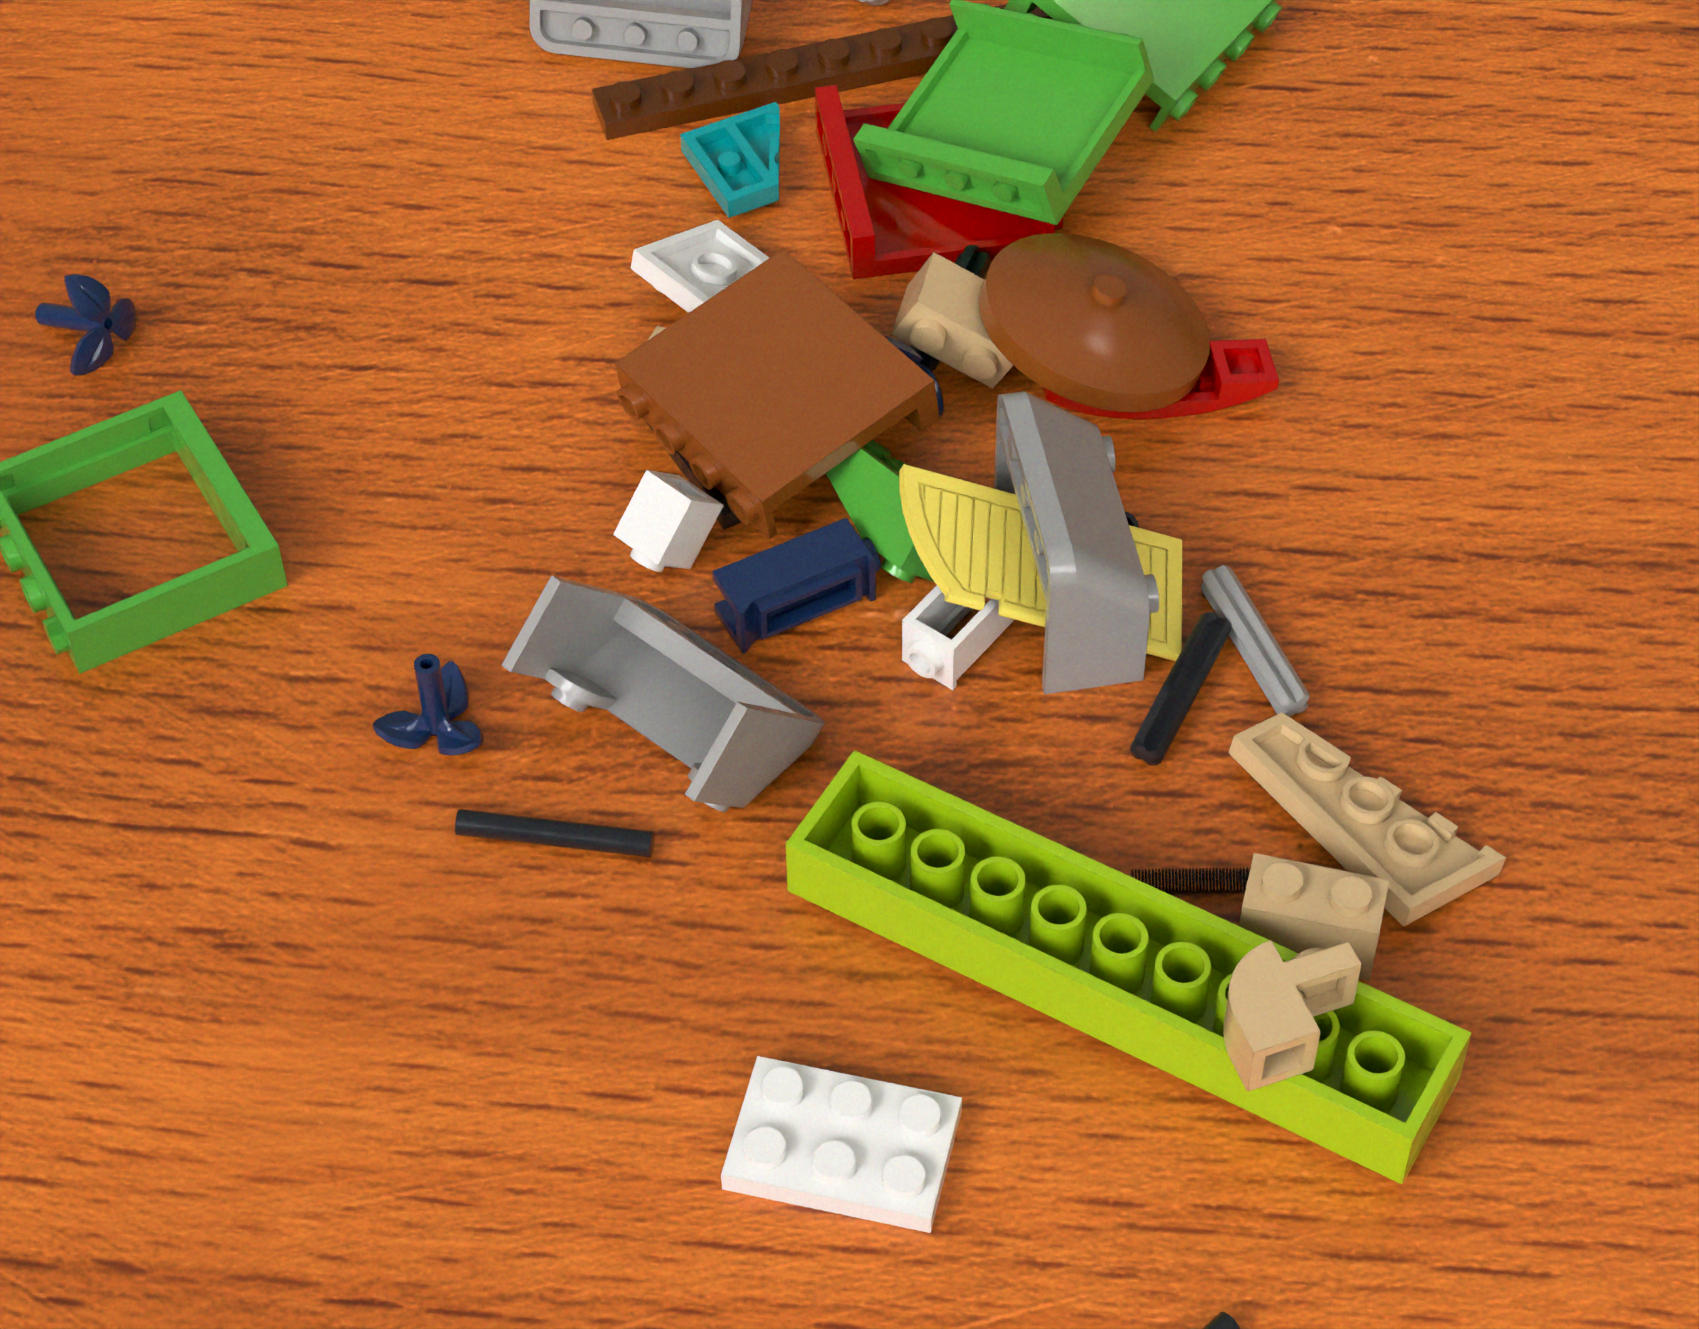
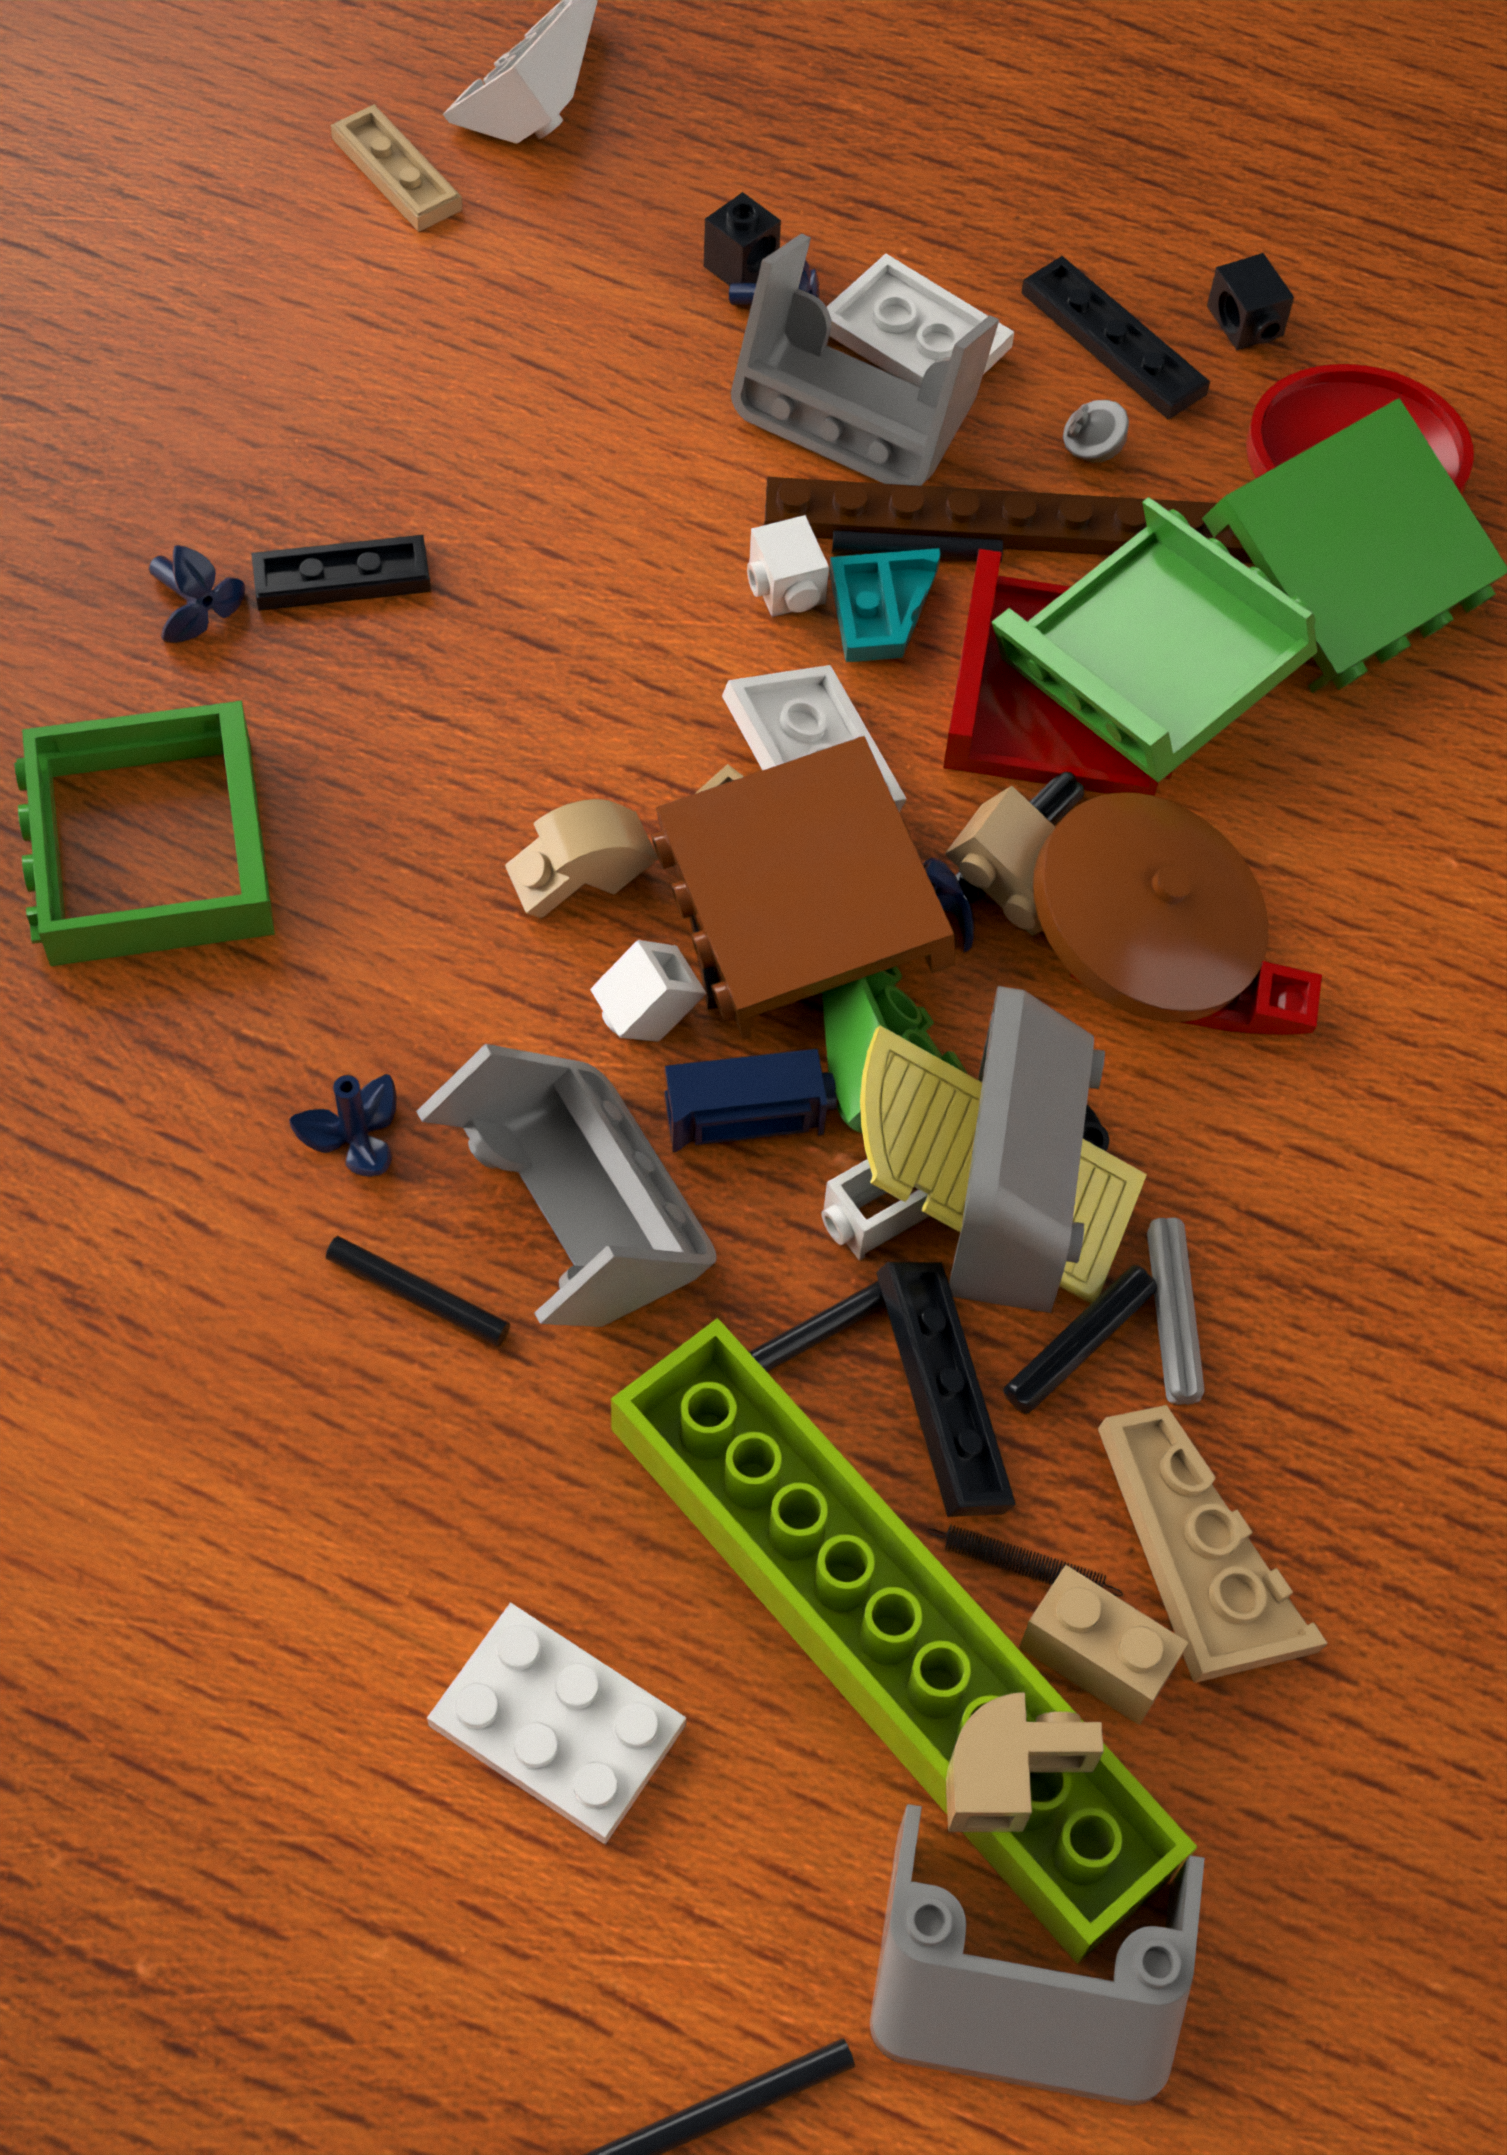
camera: 15 degrees right, 10 degrees up
(222, 272) = (340, 572): none -> black tile
(553, 419) = (580, 845): none -> tan brick
(644, 152) = (787, 566): none -> white brick
(789, 102) = (950, 547): none -> black bar
(960, 732) = (819, 1327): none -> black bar
(1079, 762) = (945, 1389): none -> black tile
(1372, 1232) = (1026, 2020): none -> light grey windscreen

